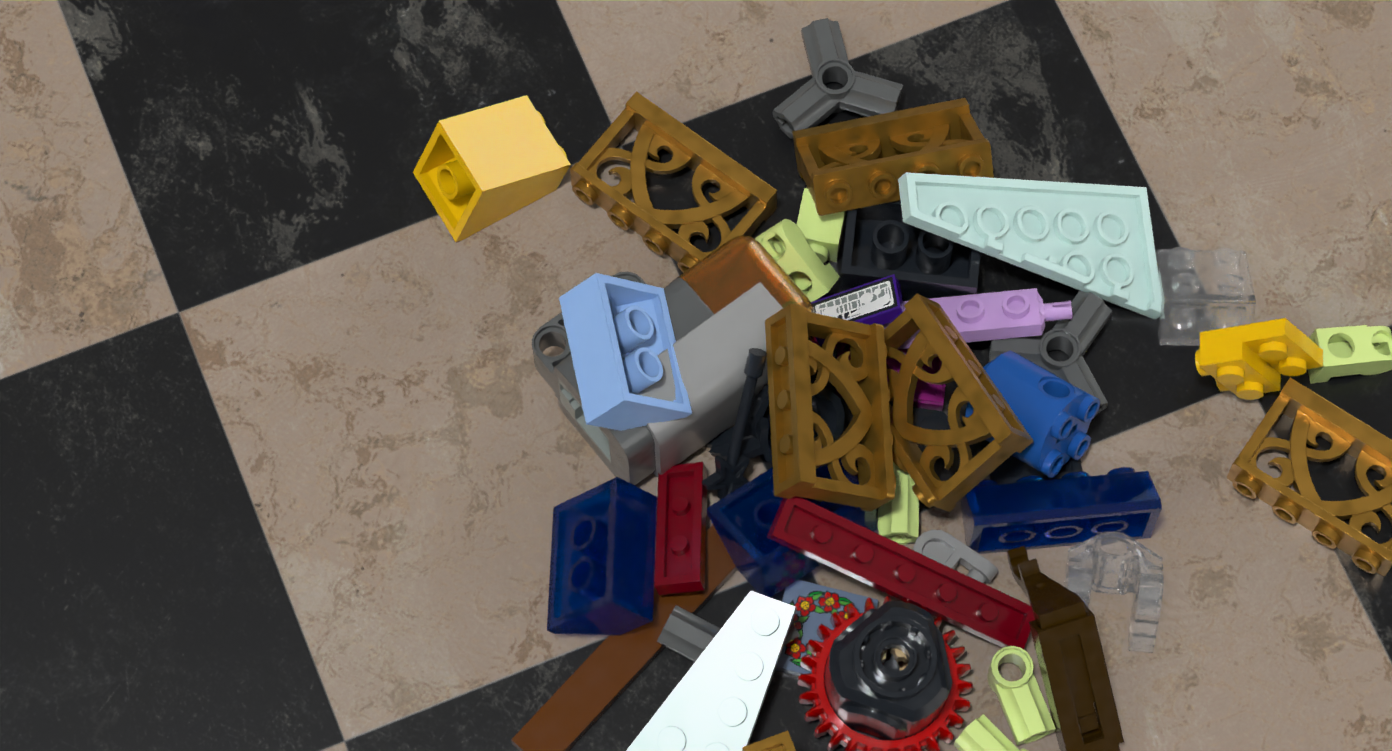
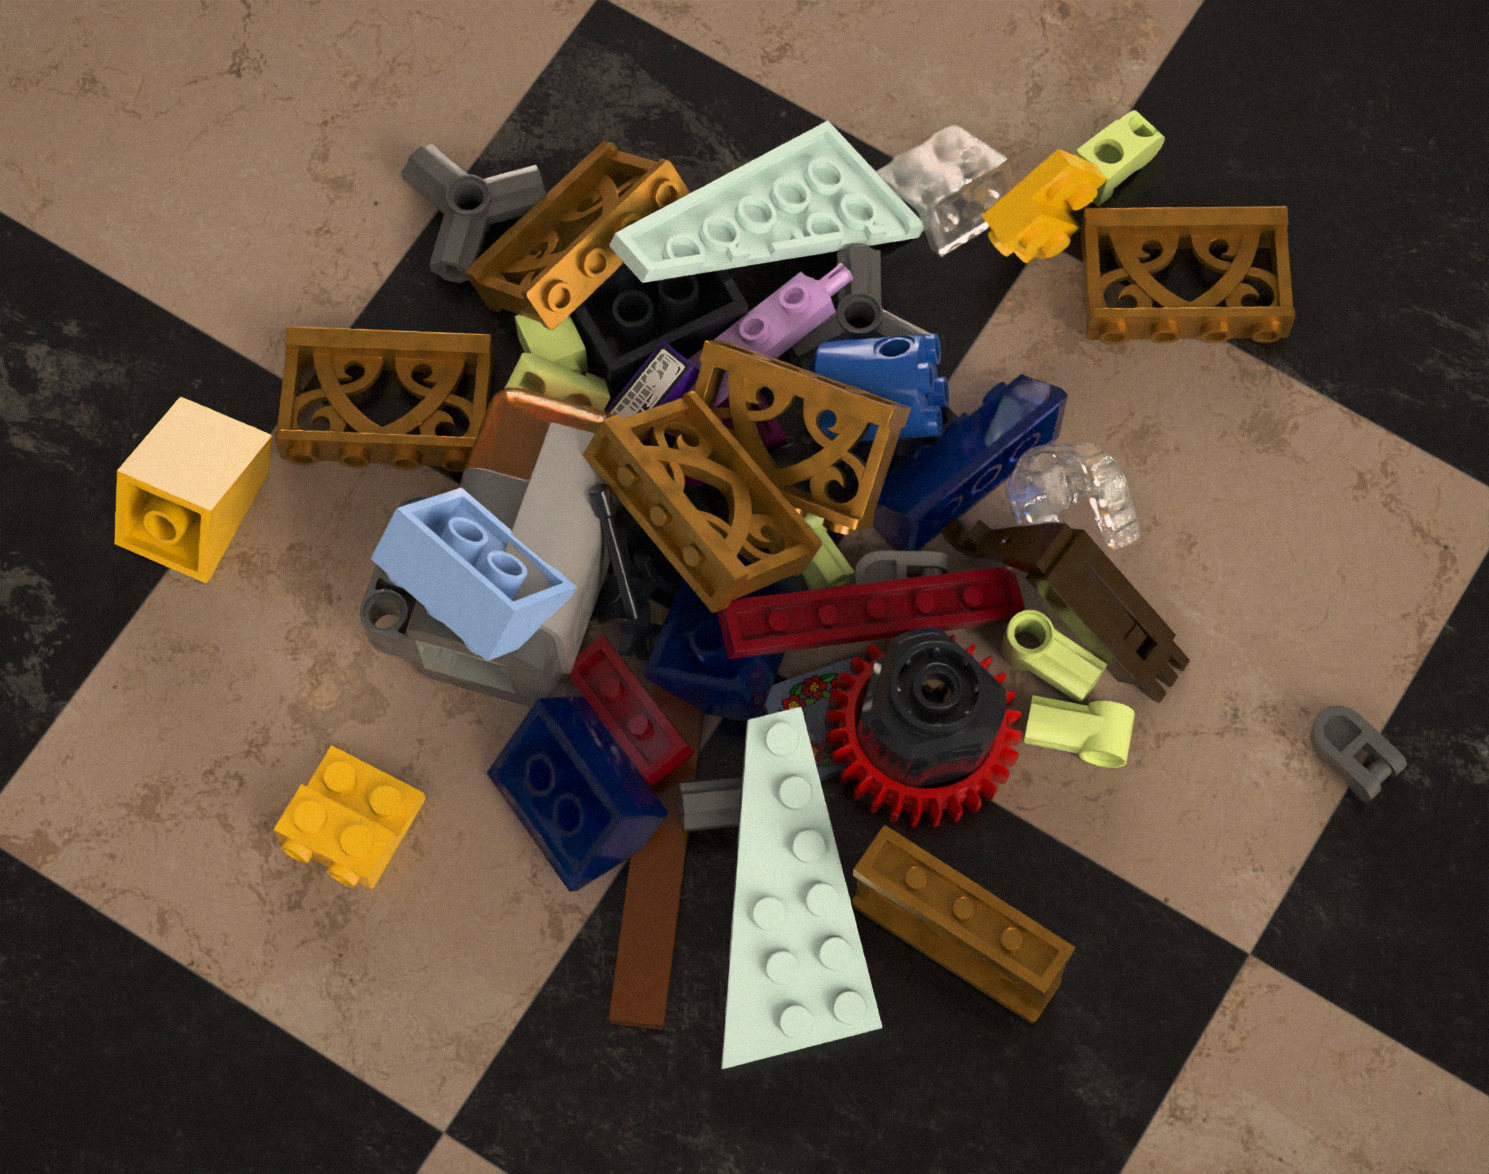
camera: 35 degrees left, 0 degrees up
(433, 475) = (348, 819): none -> yellow plate

